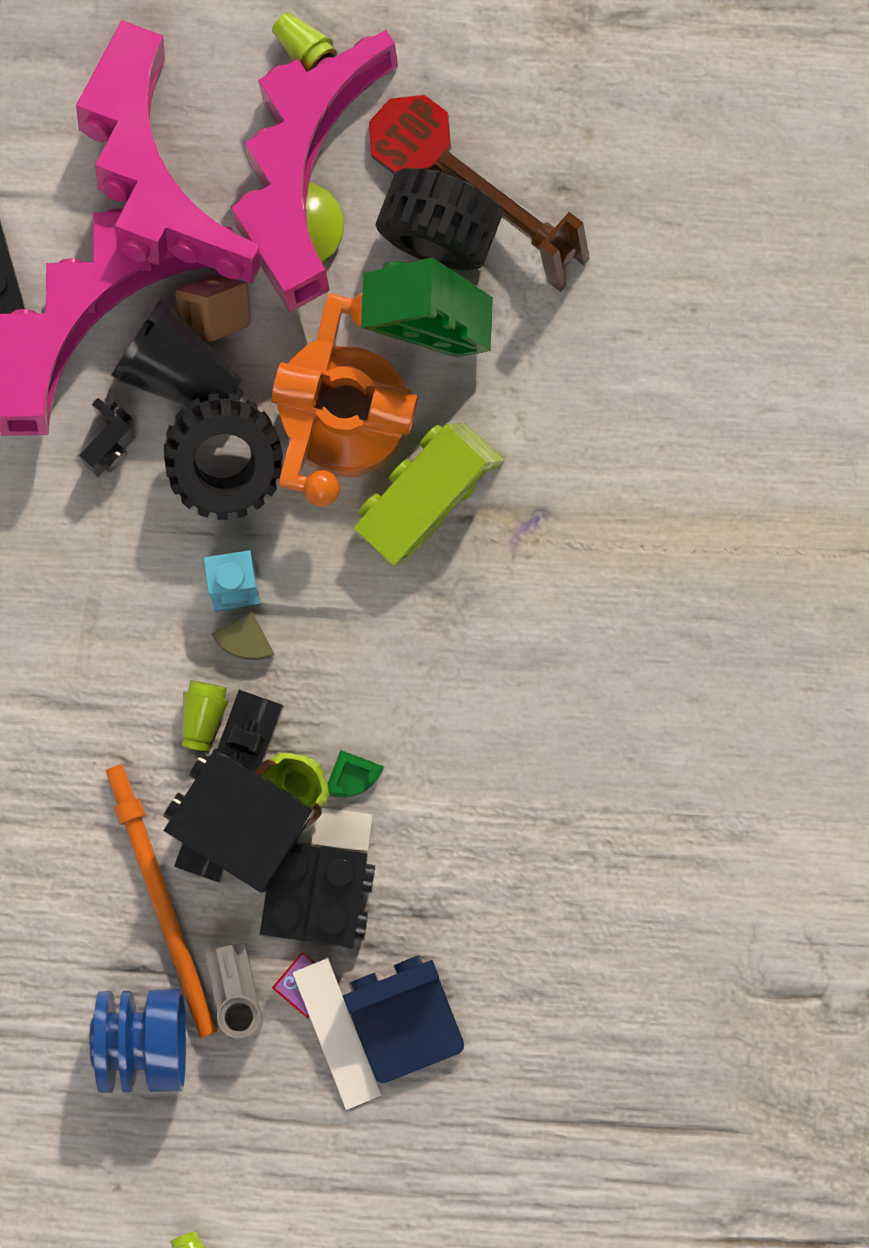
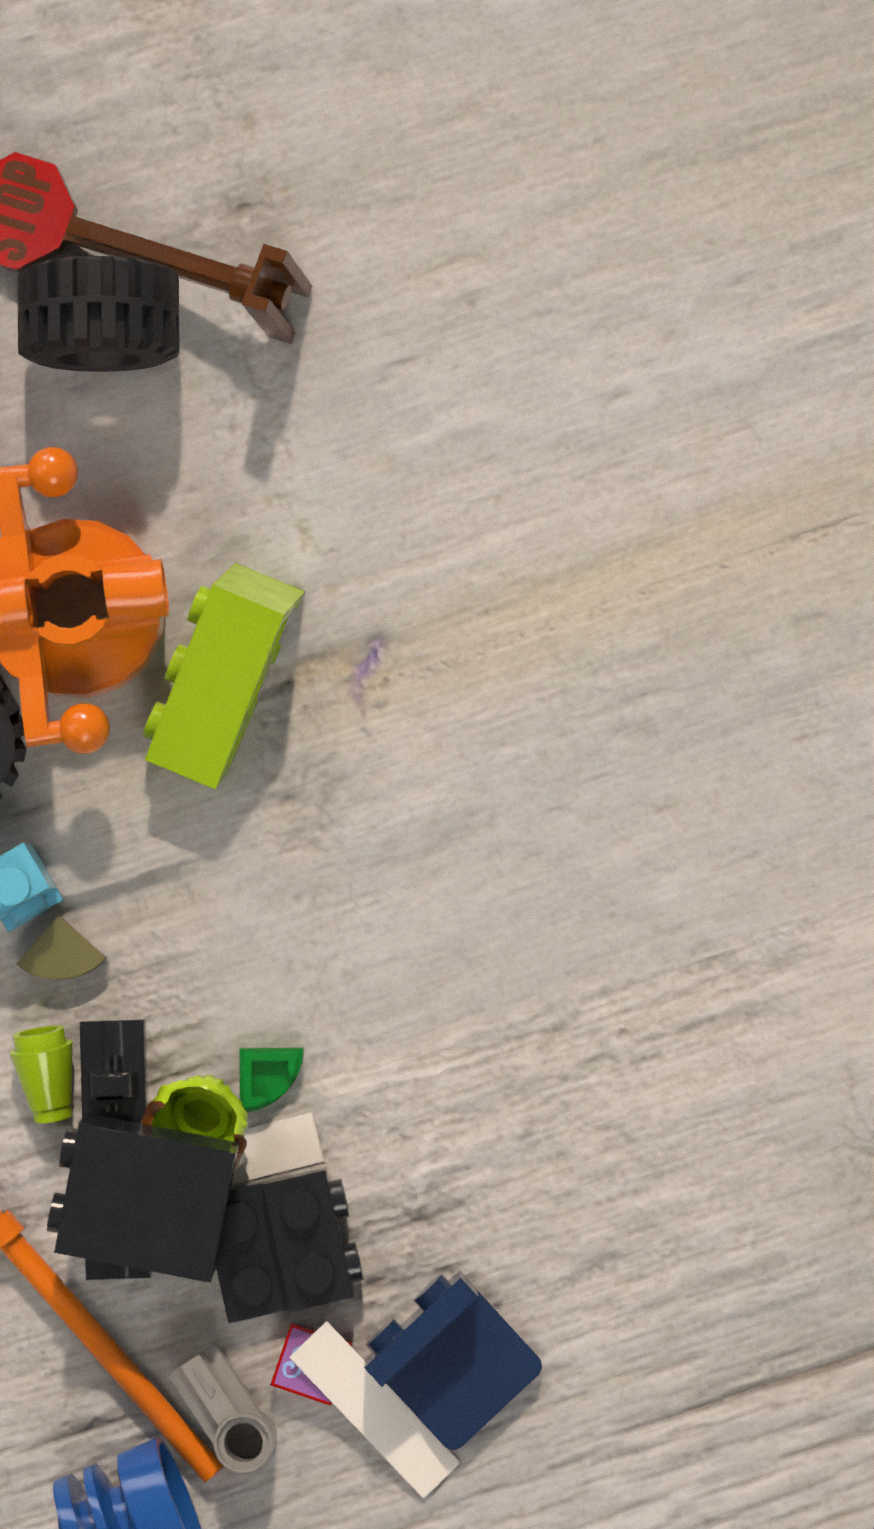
camera: 25 degrees left, 5 degrees up
(427, 307) = (128, 439): green wedge -> none

